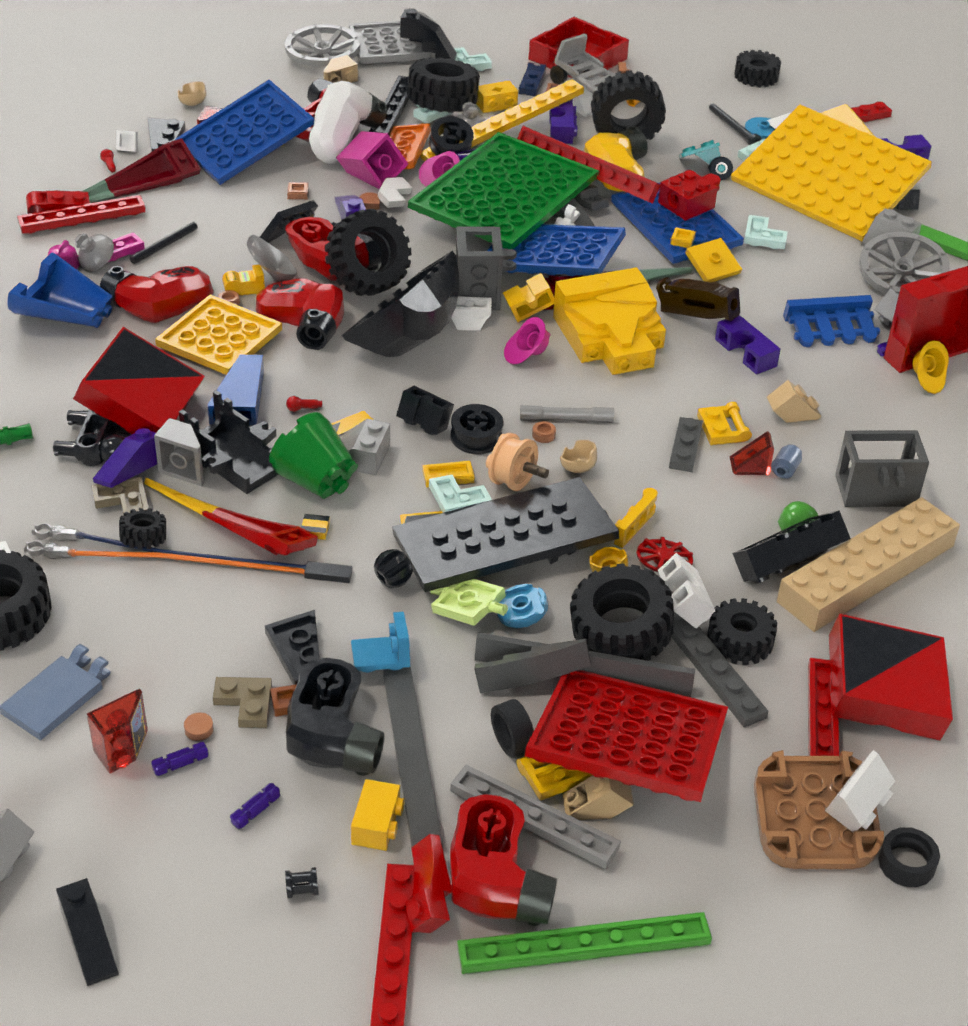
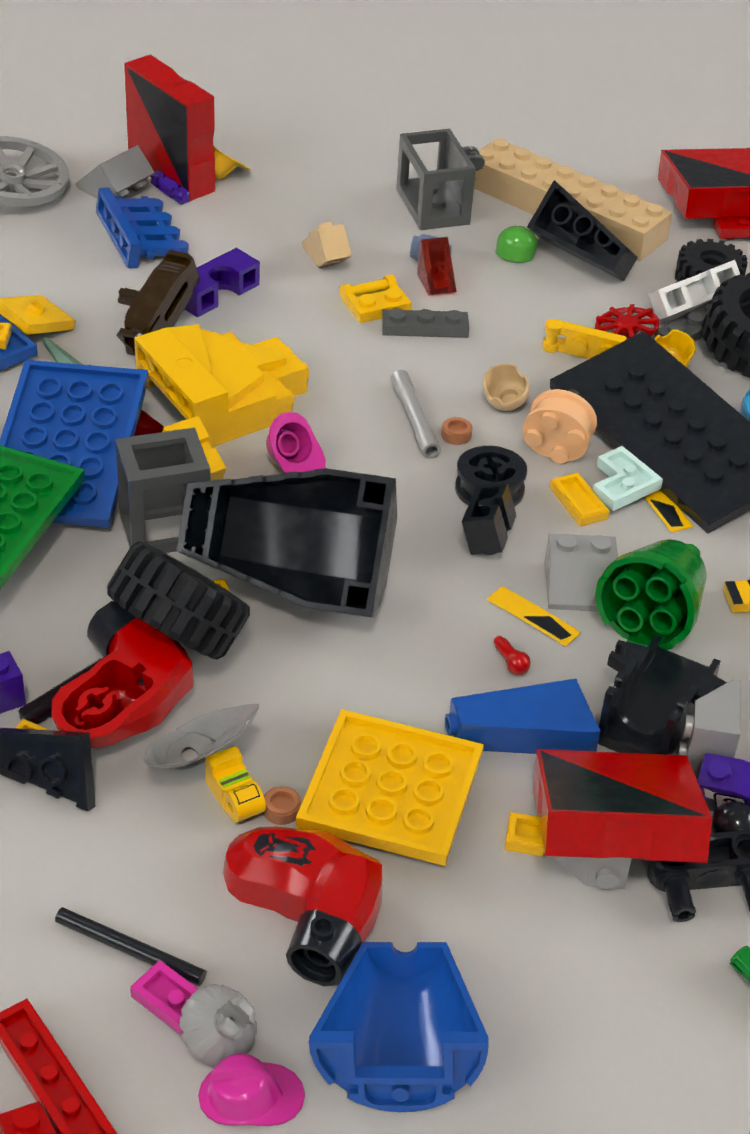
camera: 105 degrees left, 0 degrees up
(306, 304) = (285, 678): red piece -> none

